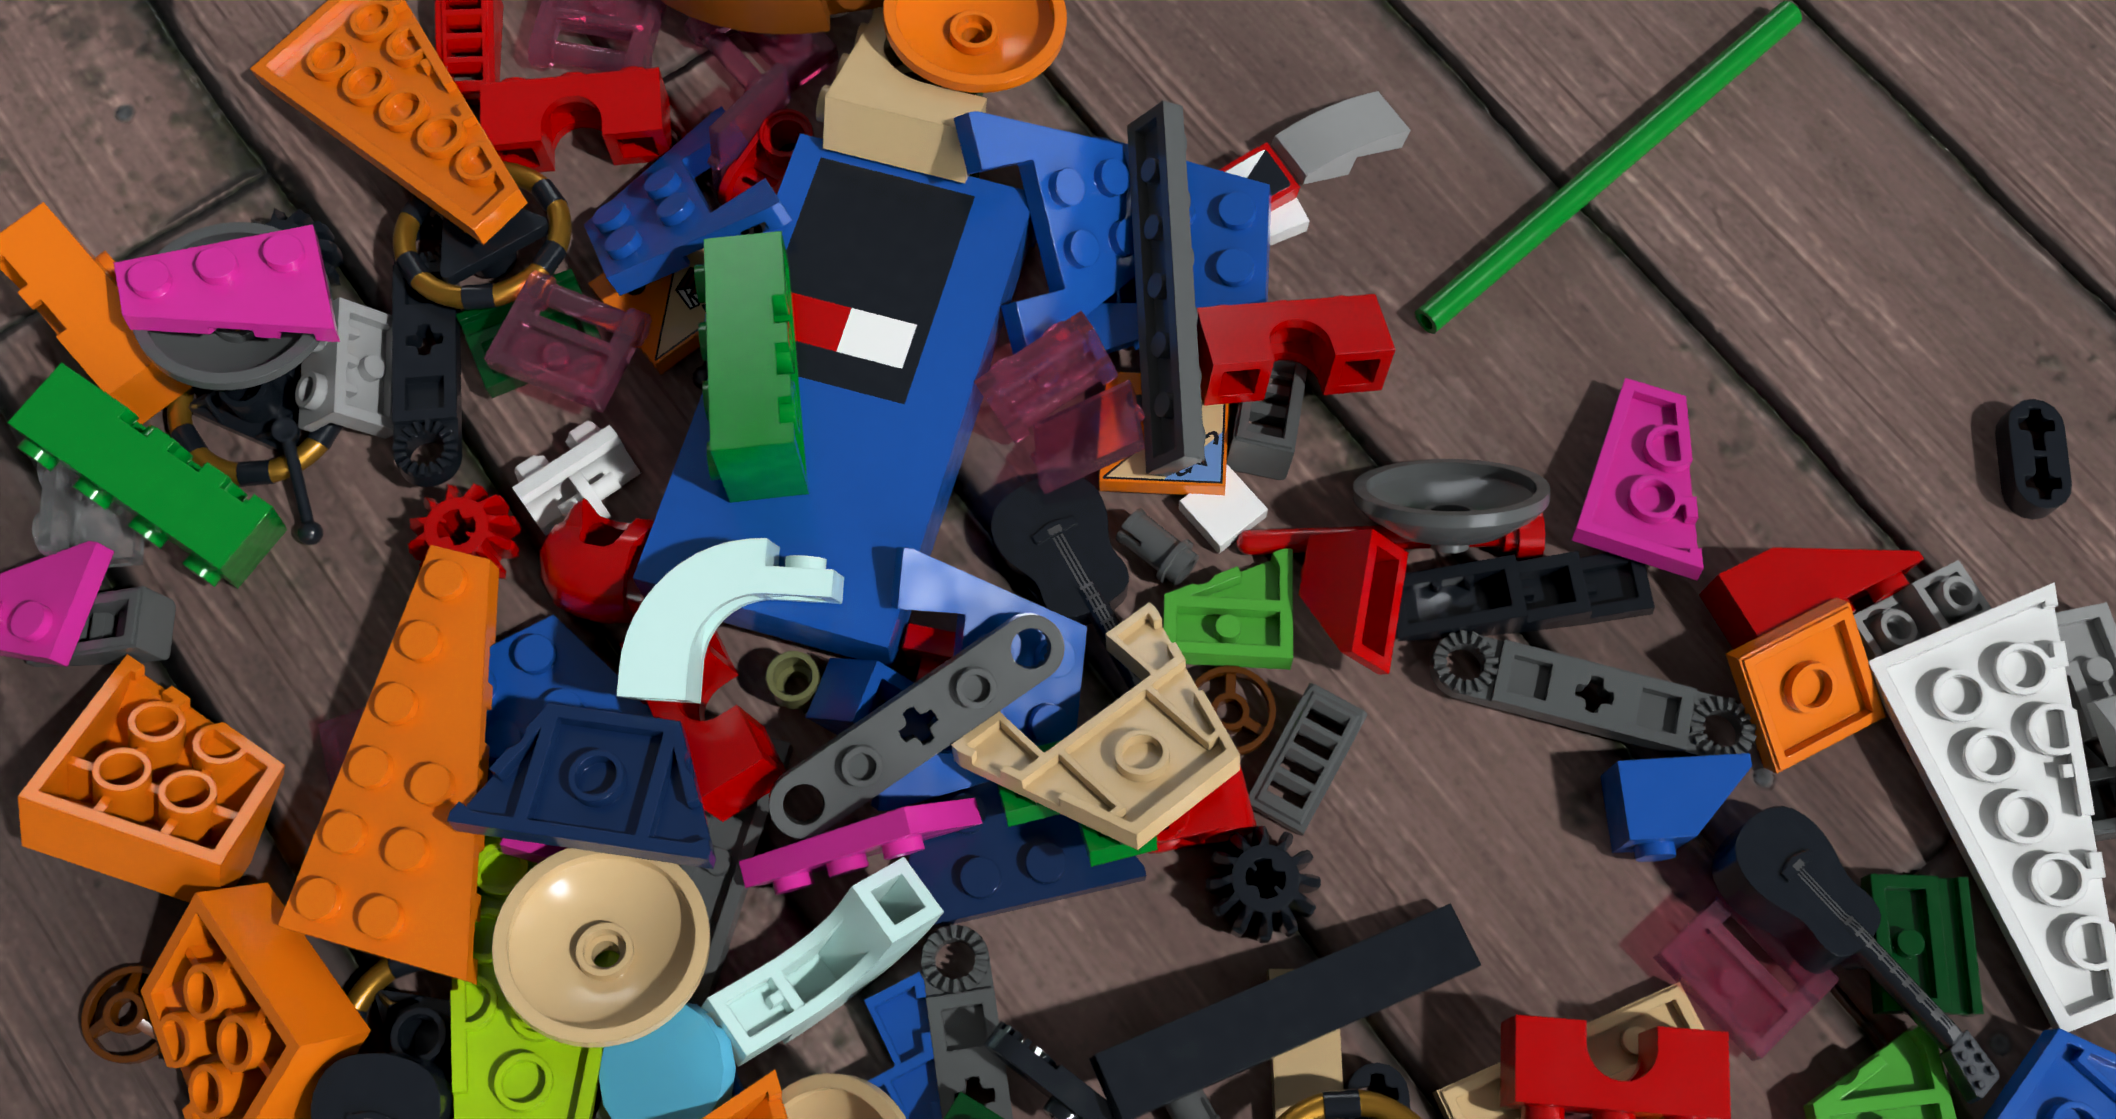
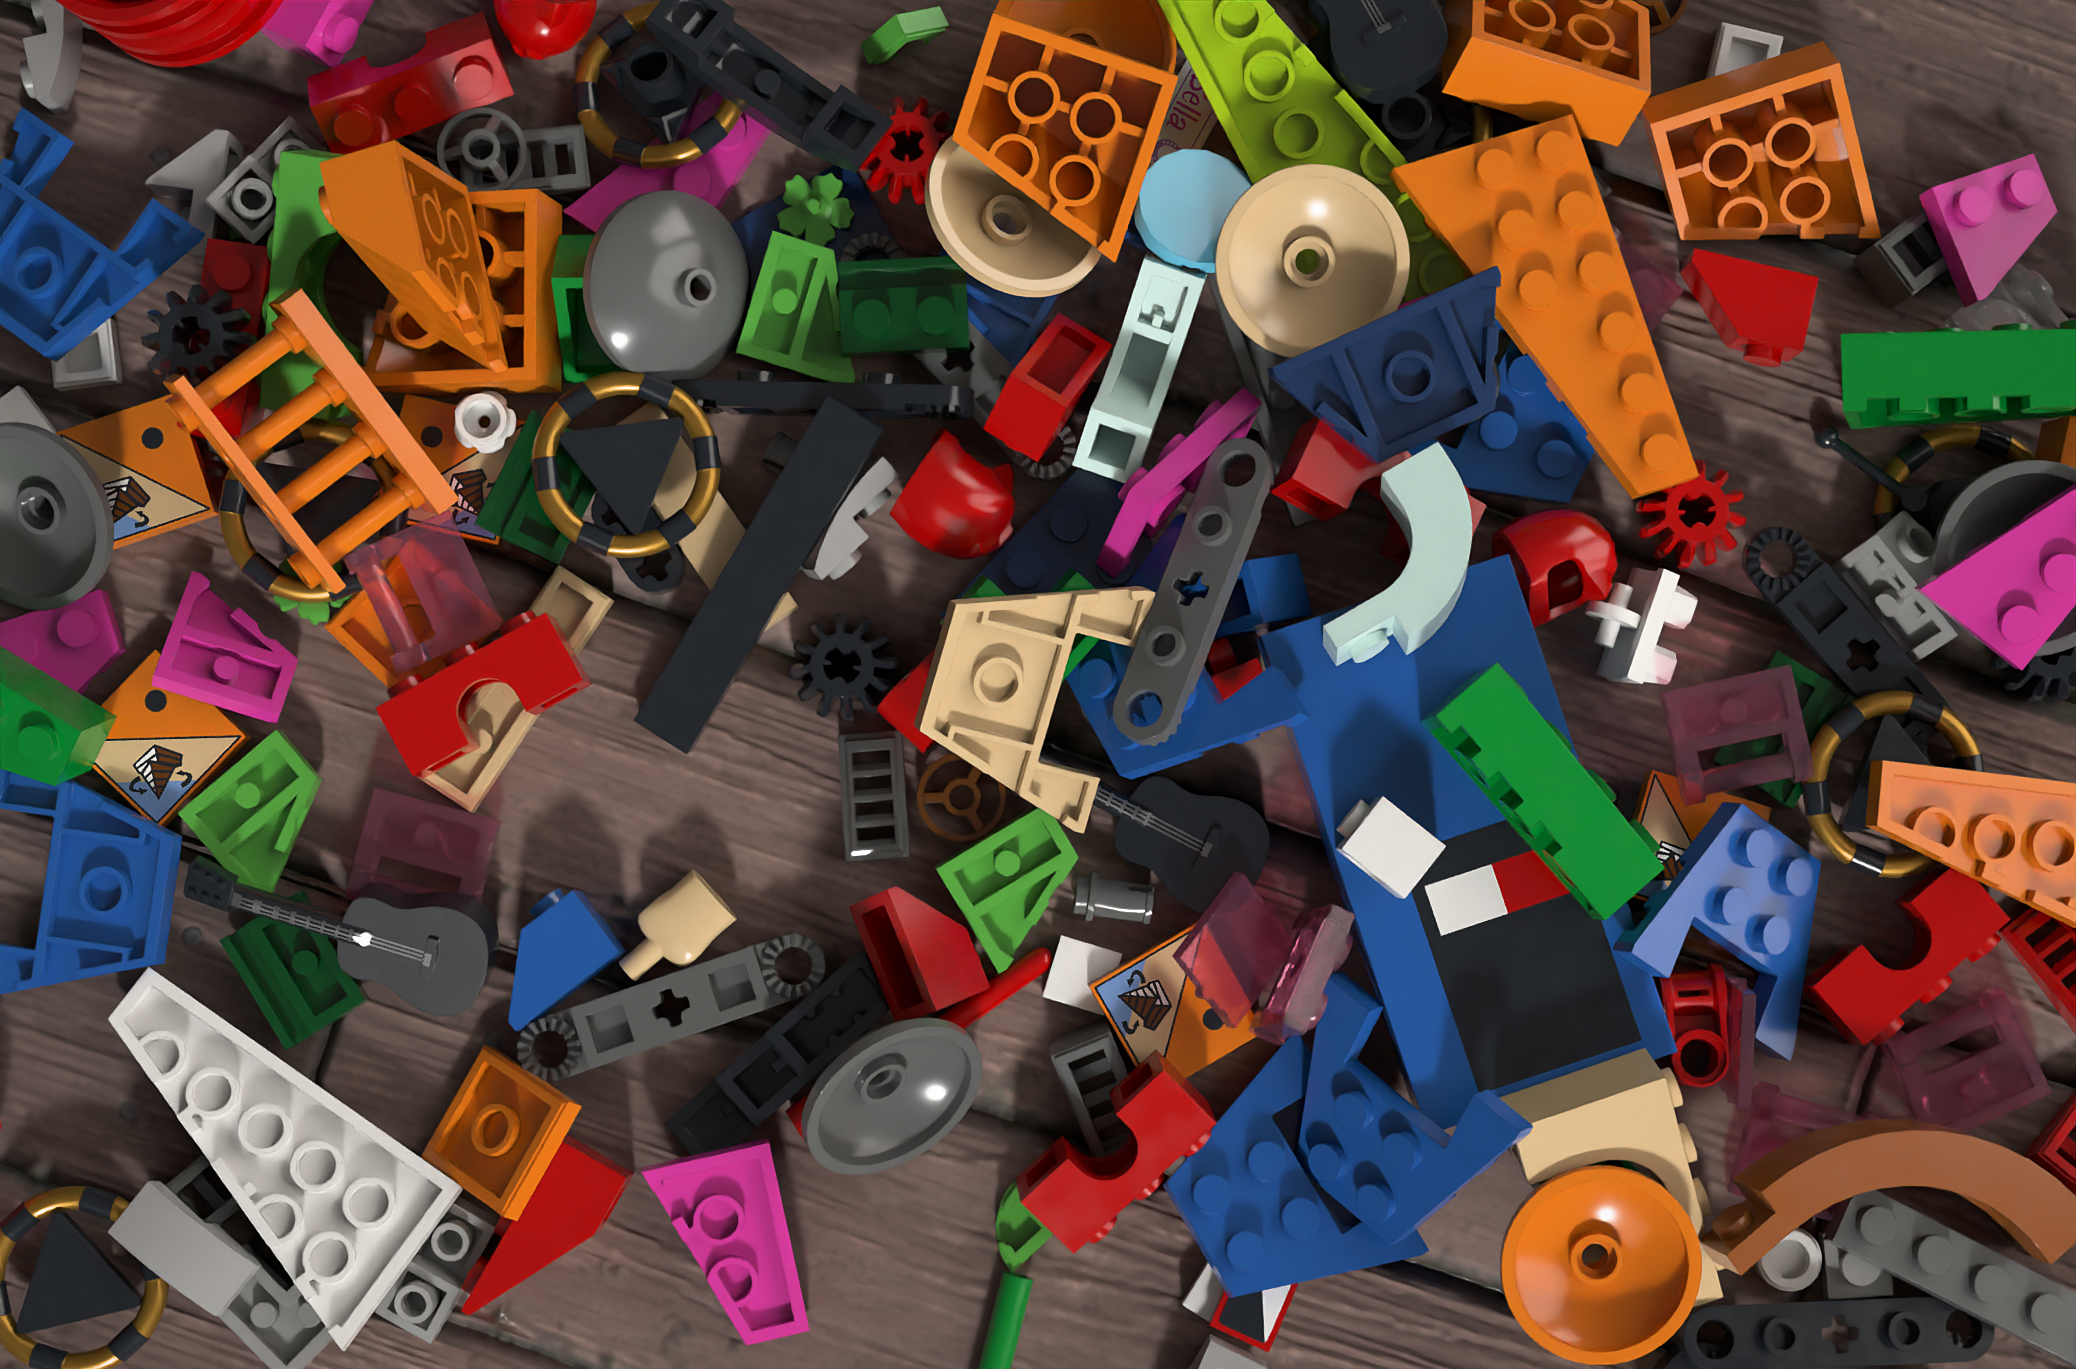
camera: 150 degrees right, 15 degrees up
(101, 899) = (1741, 47): none -> white tile
(274, 670) = (1752, 304): none -> red slope
(788, 667) = (1341, 567): olive hose -> none
(909, 403) = (1387, 845): none -> white brick
(915, 1001) = (1046, 387): none -> red slope
(1070, 958) = (956, 502): none -> red piece
(1165, 291) = (1257, 1125): dark grey plate -> none
(1189, 992) = (838, 545): none -> light grey slope
(1410, 353) = (1017, 1230): none -> bright green tile
(1544, 761) = (678, 925): none -> tan piece

